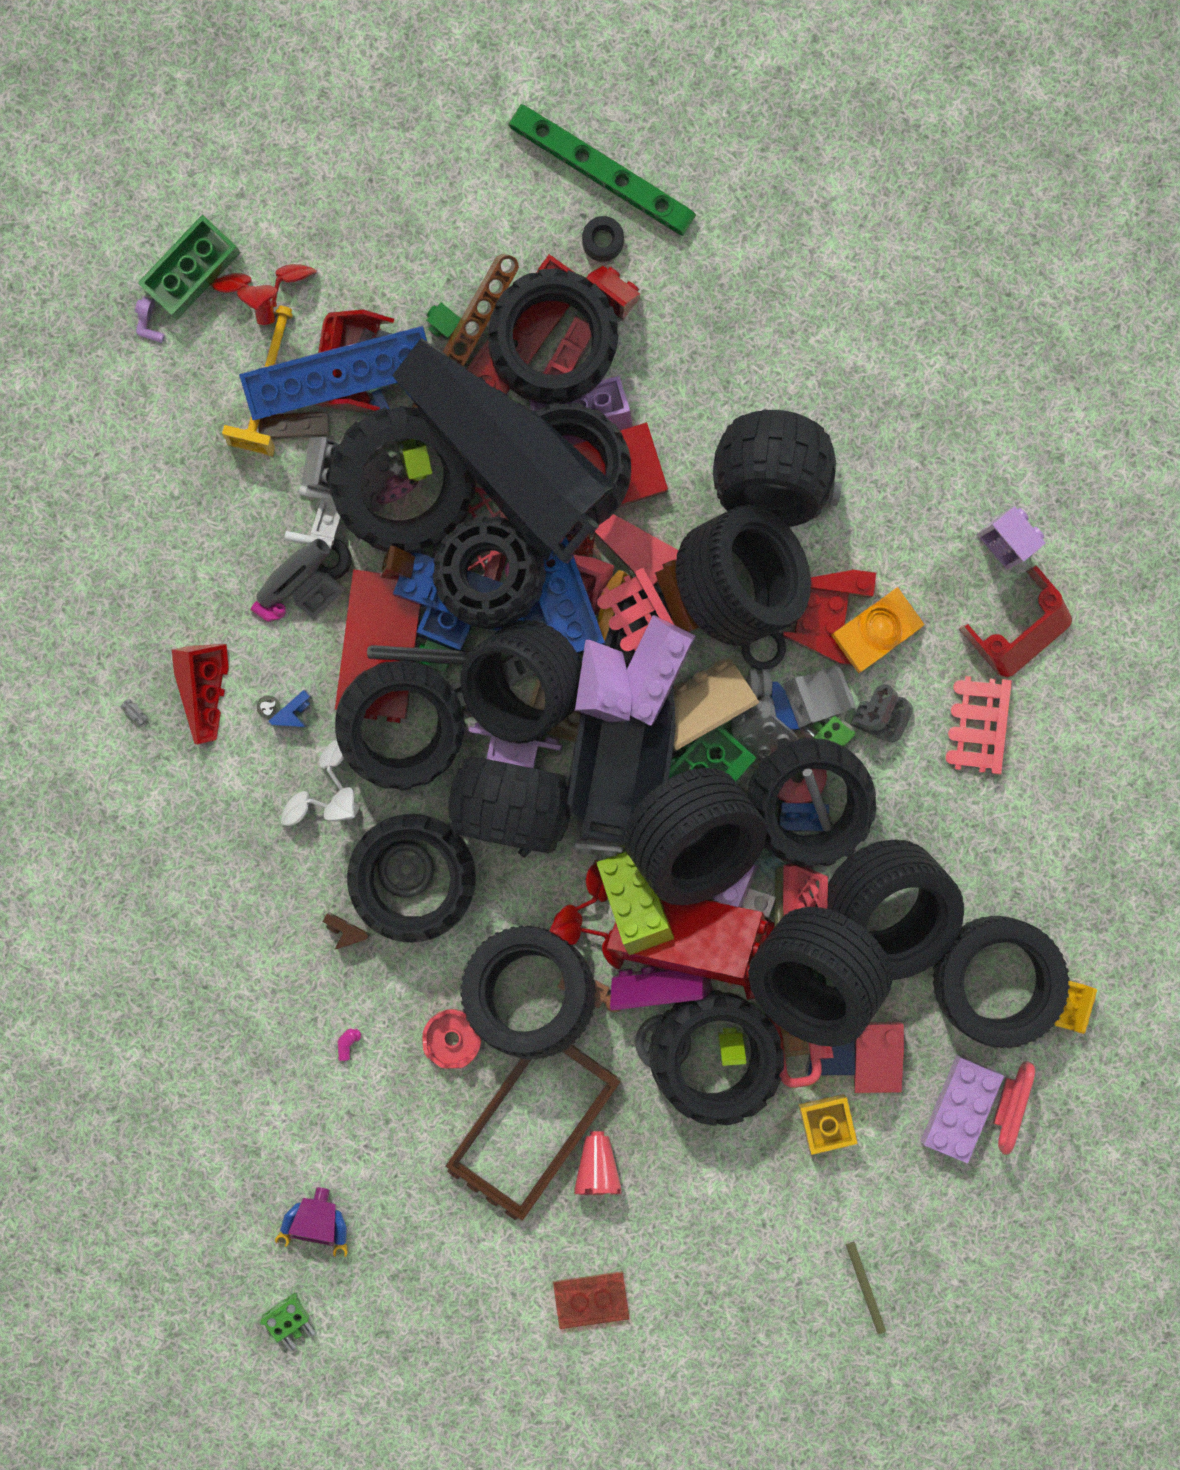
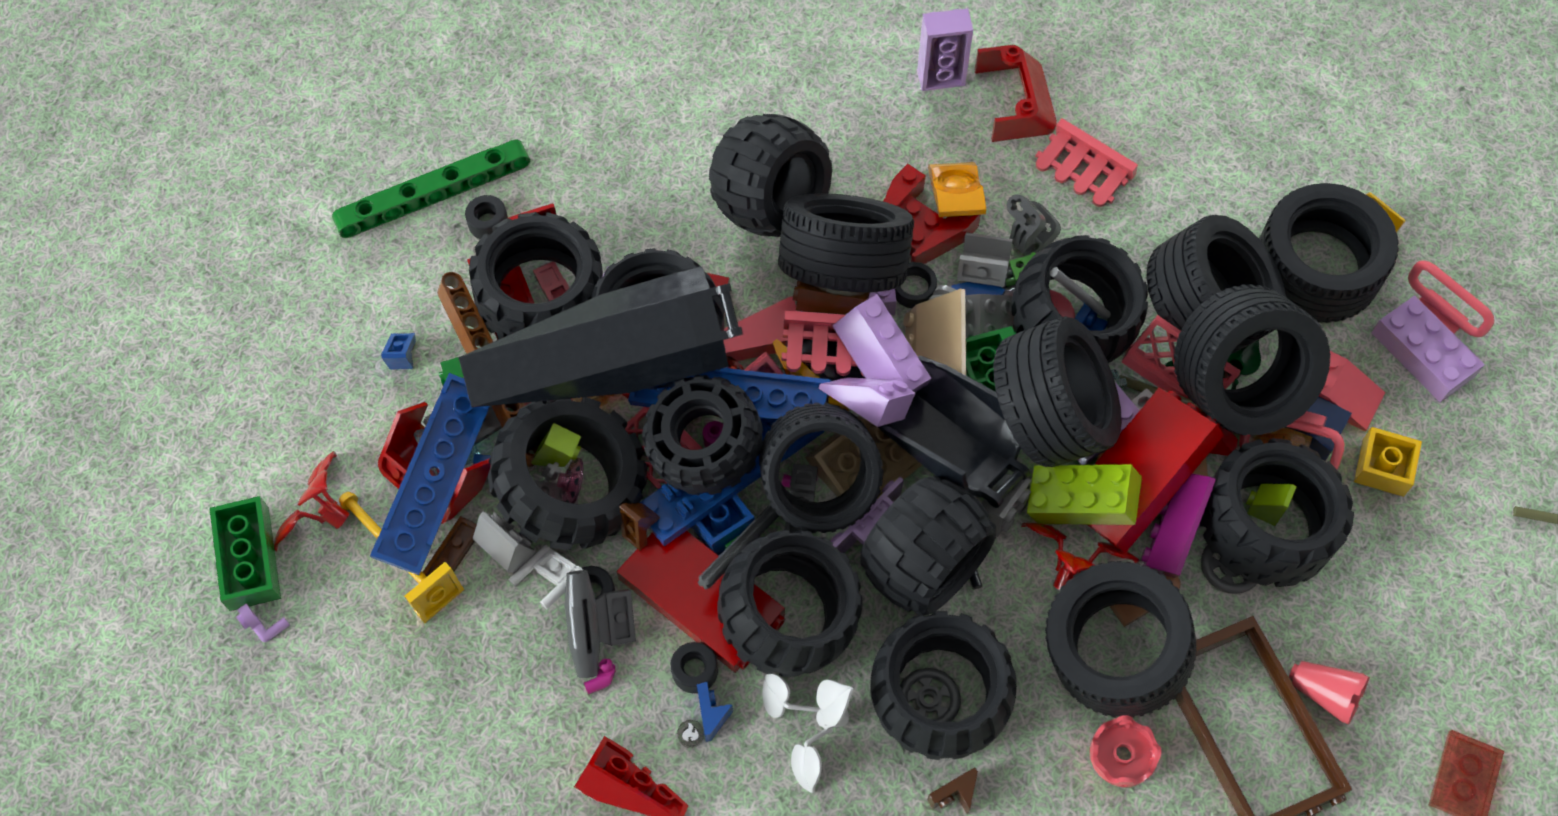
camera: 60 degrees left, 25 degrees down
(306, 669) = (690, 651): none -> black tyre
(435, 256) = (398, 351): none -> blue slope

